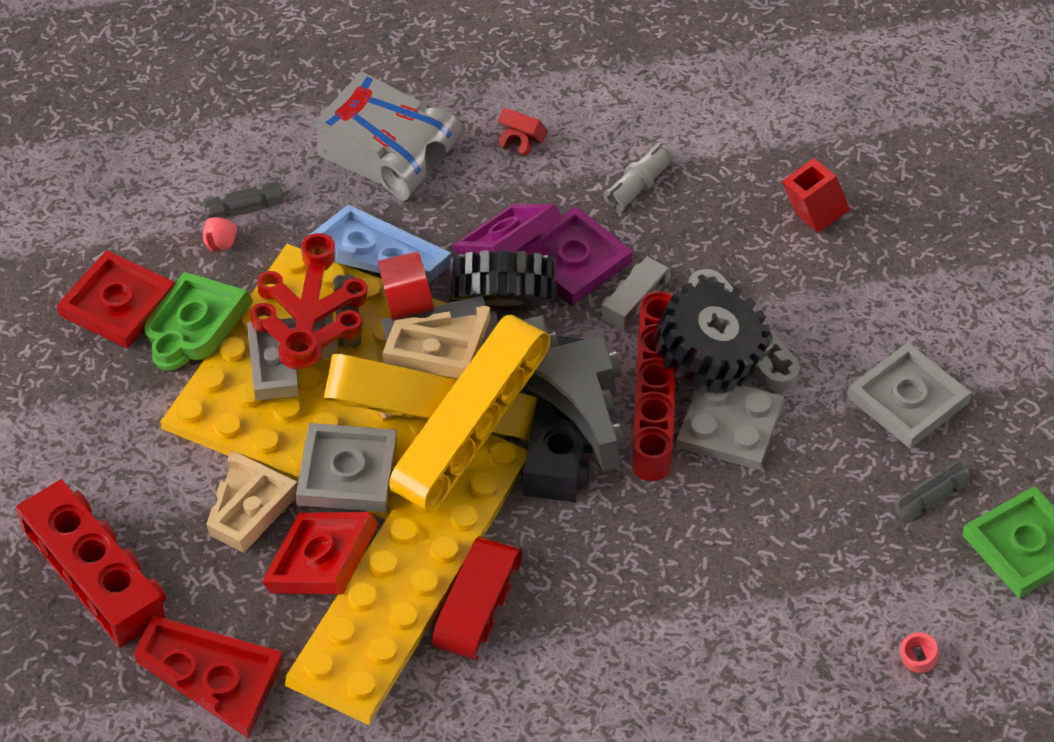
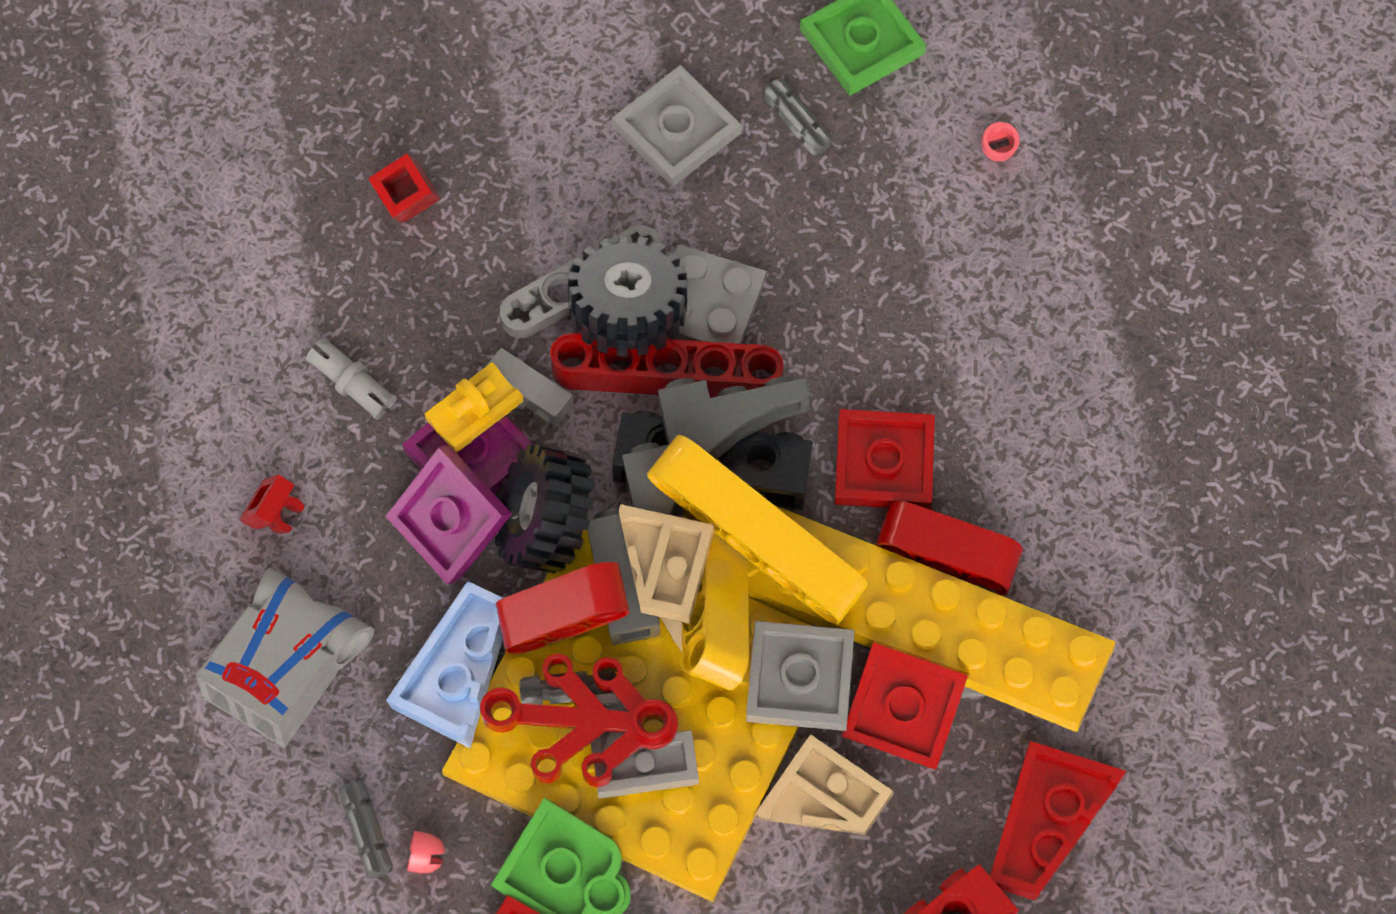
camera: 90 degrees left, 15 degrees up
(569, 551) = (884, 458): none -> red plate
(597, 233) = (473, 407): none -> yellow hips

